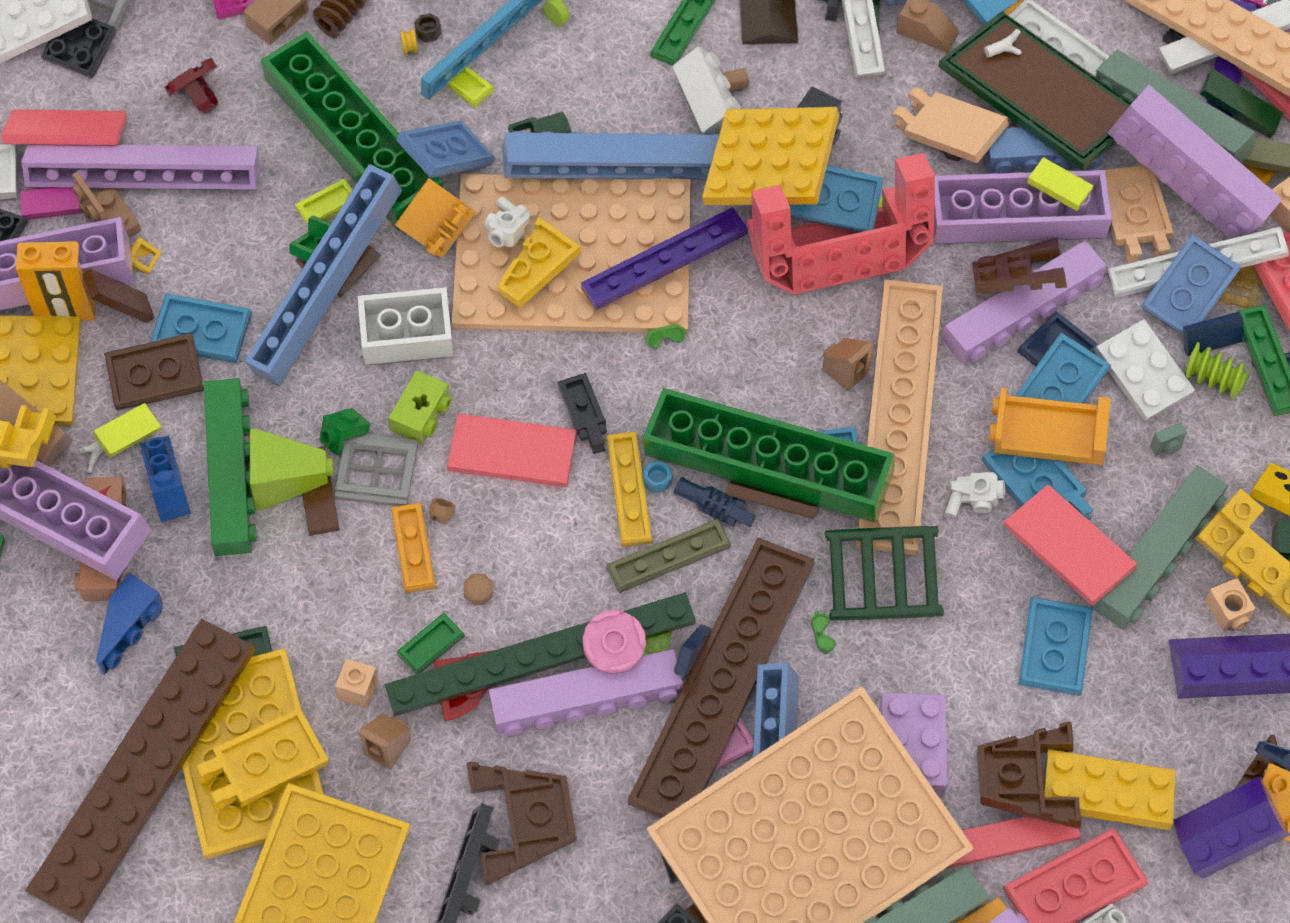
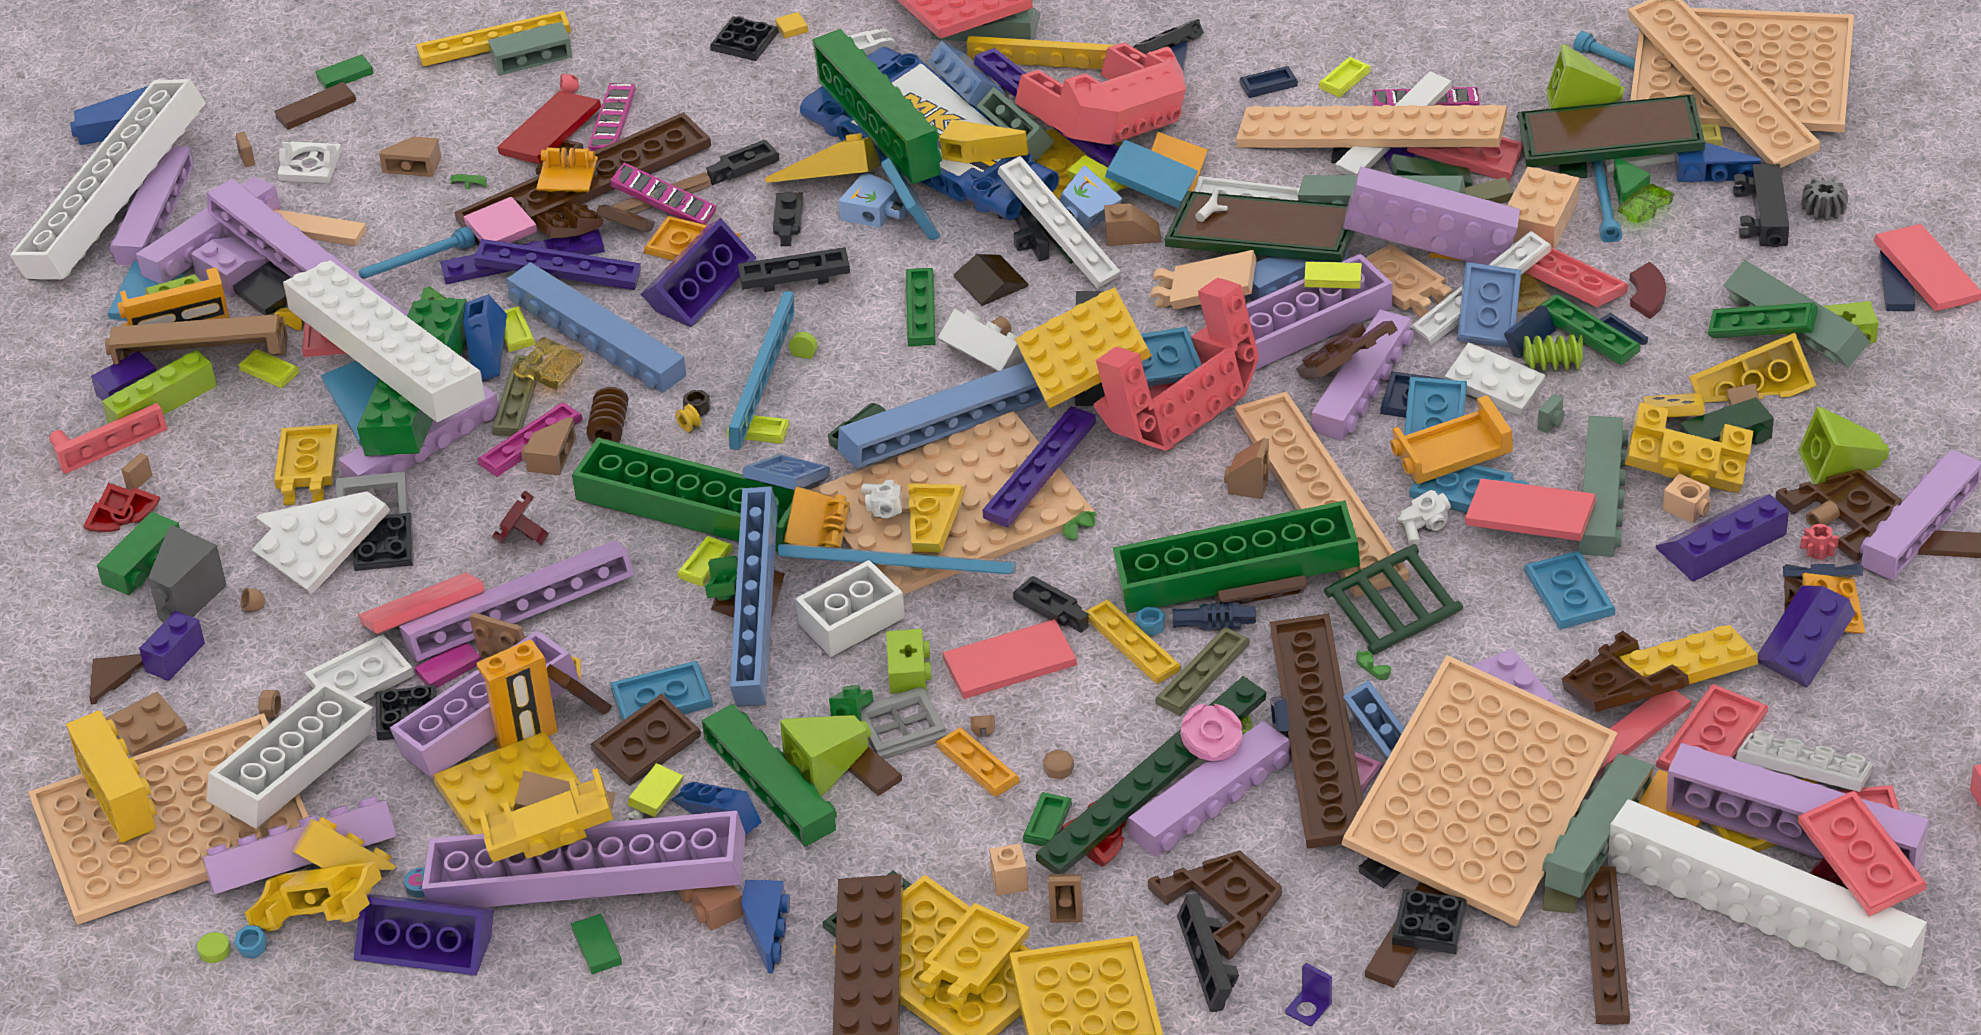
camera: 25 degrees left, 20 degrees down
(476, 296) = (897, 559): none -> dark azure tile

